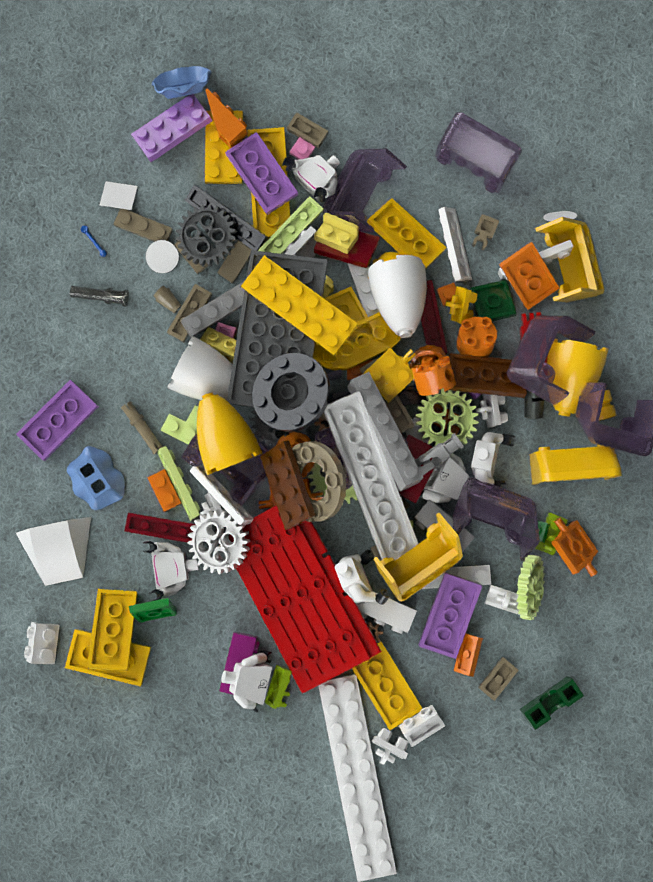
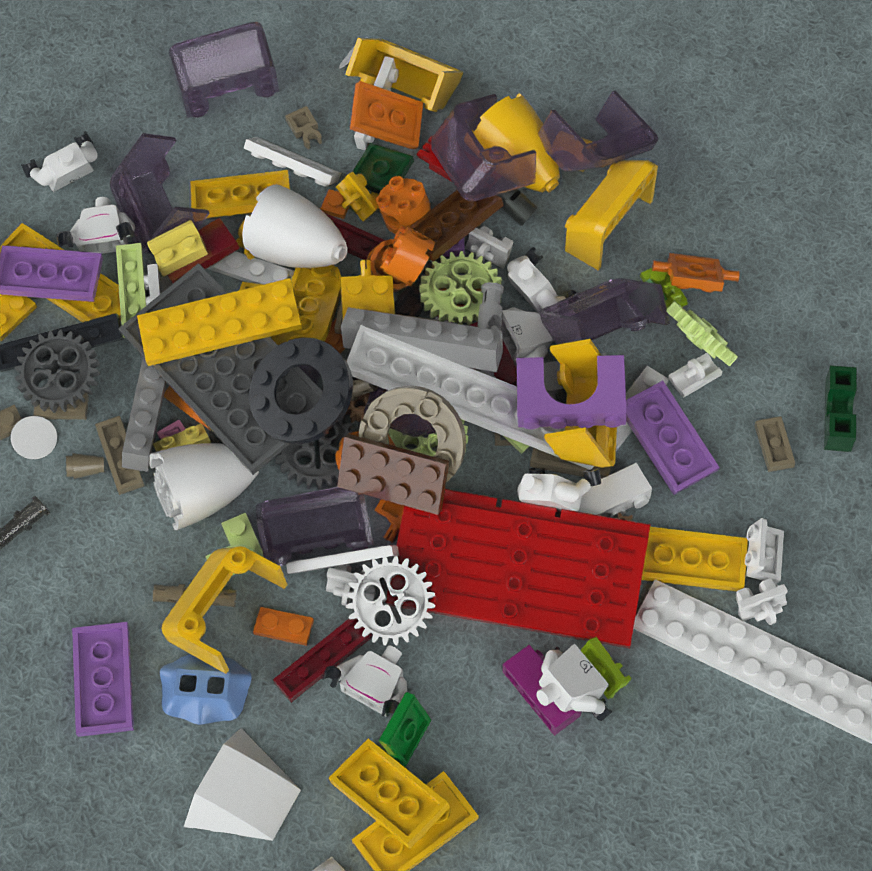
camera: 50 degrees left, 20 degrees down
(163, 431) = (185, 621): none -> yellow windscreen
(182, 489) = (301, 603): yellowish green plate -> none
(223, 434) = (284, 496): yellow cylinder -> none
(235, 262) = (111, 370): dark tan slope -> none
(302, 149) = (59, 223): bright pink plate -> none
(307, 130) = (46, 206): dark tan plate -> none
(340, 118) = (64, 165): none -> white torso
(429, 574) = (539, 409): none -> medium lavender arch
(468, 655) = (726, 453): orange plate -> none

